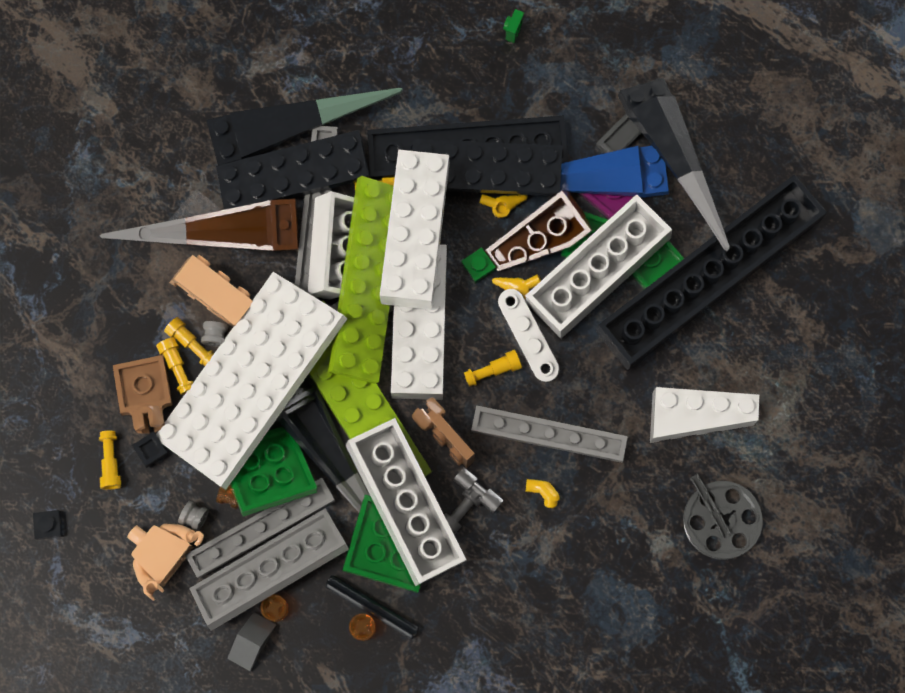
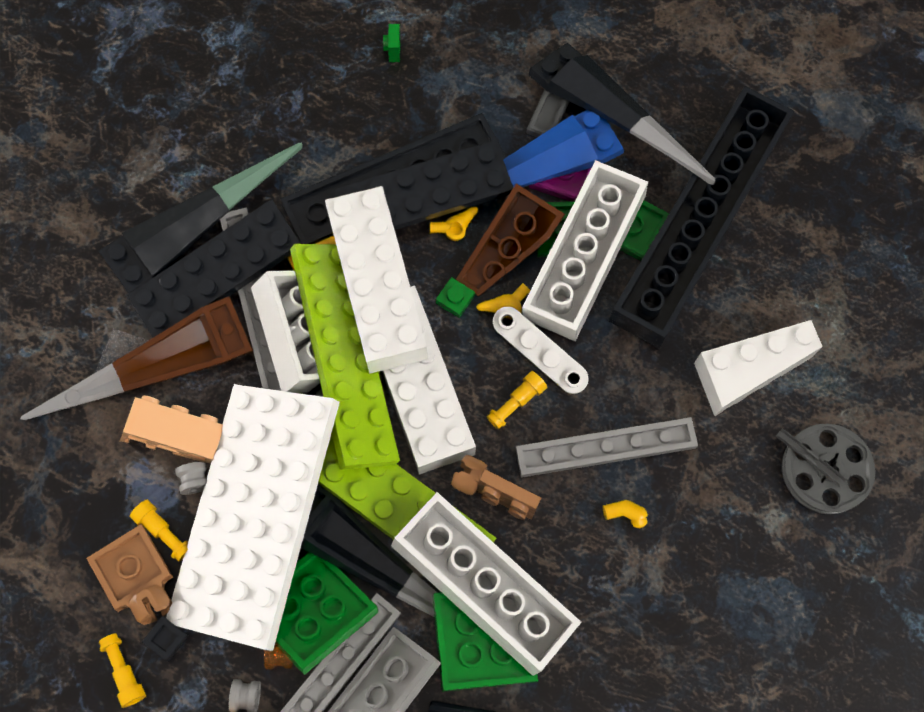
camera: 25 degrees left, 5 degrees down
(177, 329) = (148, 489): yellow piece -> none
(474, 494) = (553, 546): flat silver bar -> none

